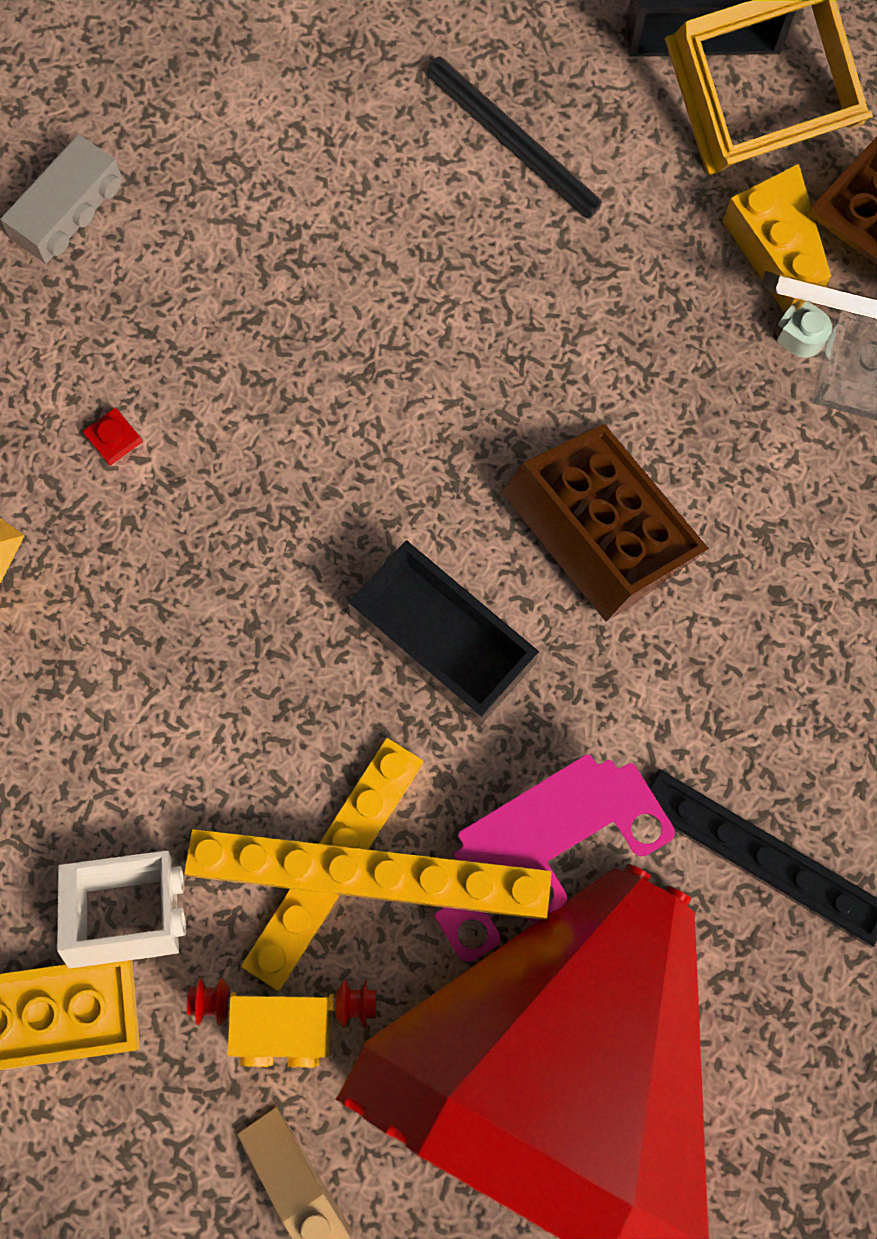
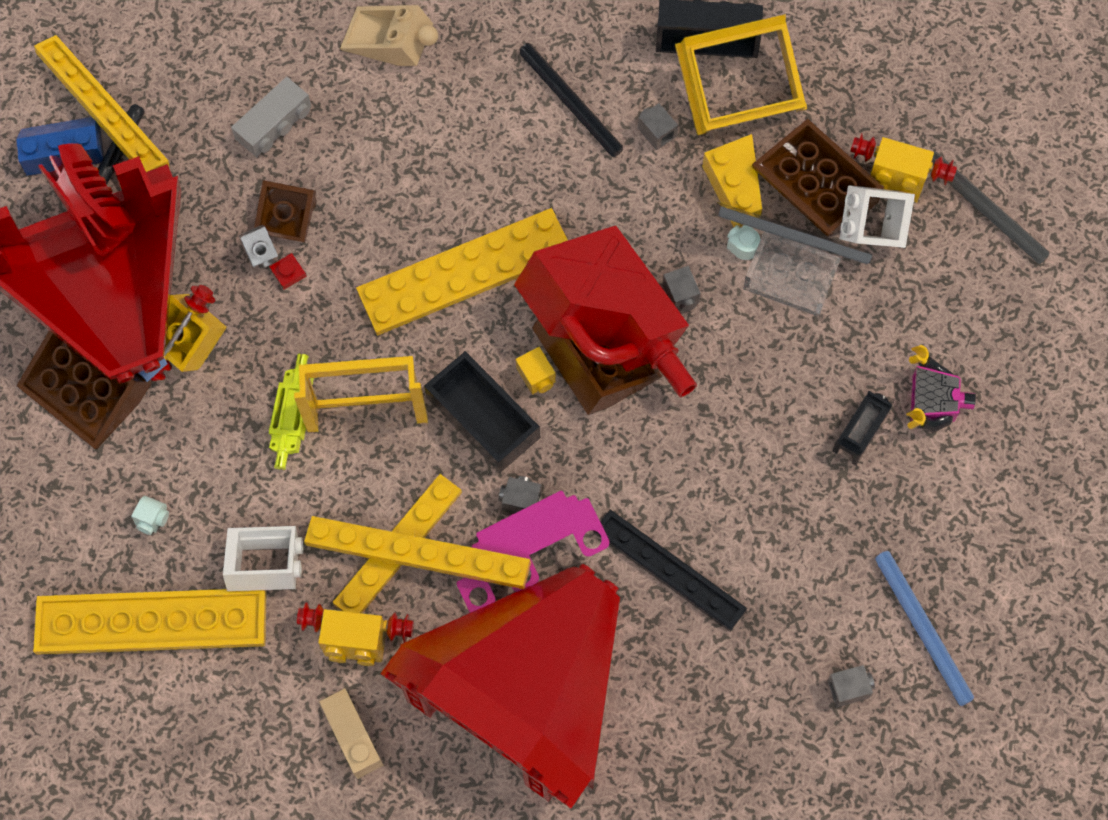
camera: 10 degrees right, 5 degrees down
(62, 402) = (258, 246): none -> flat silver brick
(97, 342) = (285, 210): none -> reddish brown slope
(147, 622) = (291, 428): none -> neon yellow piece
(167, 645) = (308, 403): none -> yellow piece
(230, 59) = (390, 34): none -> tan slope
(384, 413) = (457, 272): none -> yellow plate
(516, 559) = (536, 371): none -> yellow brick
(517, 761) = (519, 494): none -> flat silver brick
(616, 434) = (606, 296): none -> red piece
(650, 165) = (657, 126): none -> flat silver brick
(722, 411) = (682, 289): none -> flat silver brick

